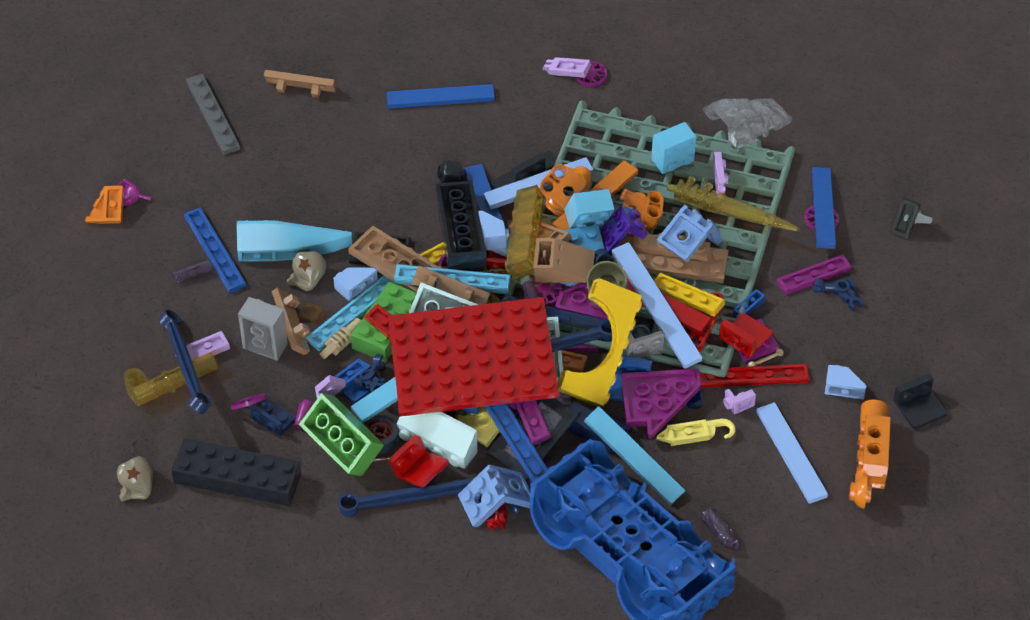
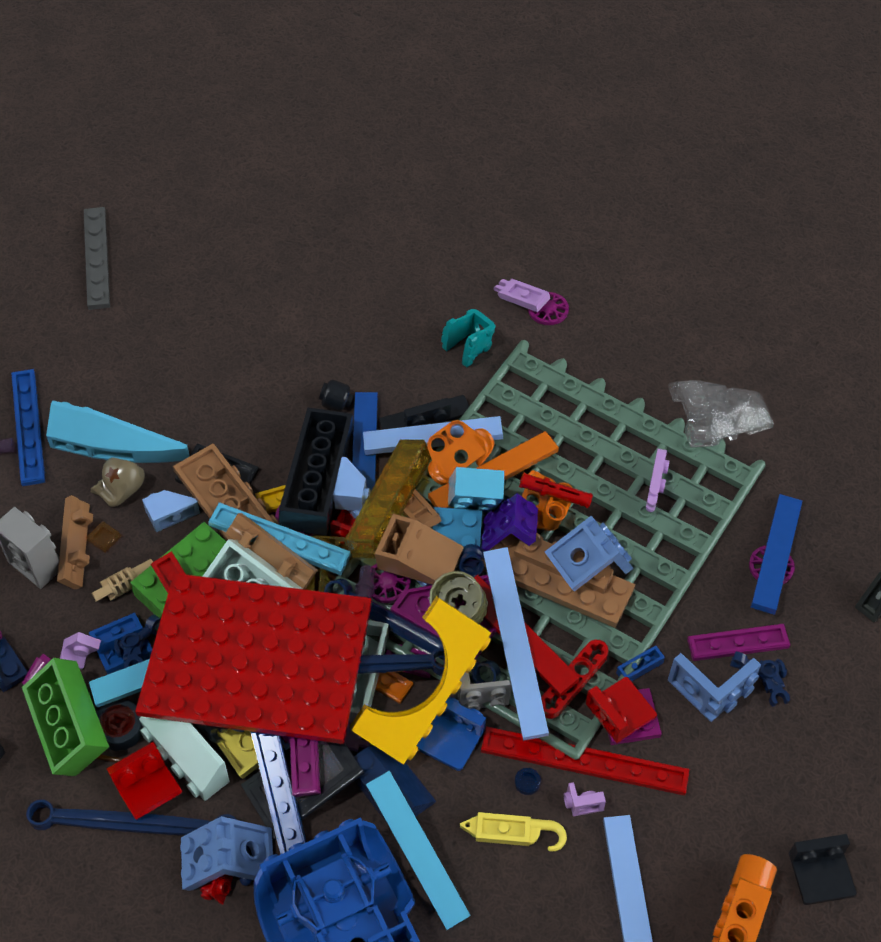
camera: 15 degrees right, 5 degrees up
(316, 84) = (223, 248): medium nougat hinge -> none
(355, 309) = (148, 548): medium azure tile -> none
(440, 96) = (362, 295): blue tile -> none
(533, 99) = (461, 327): none -> teal piece
(649, 196) = (555, 490): none -> red pin
(657, 396) = (478, 767): magenta wing -> none
(673, 148) = (609, 431): medium azure brick -> none
(689, 295) = (563, 635): yellow tile -> none
(722, 204) = (646, 520): clear yellow piece -> none
(779, 352) = (659, 742): tan hinge -> none
(805, 311) = (704, 694): none -> medium blue bracket
(843, 382) = (729, 811): light blue slope -> none

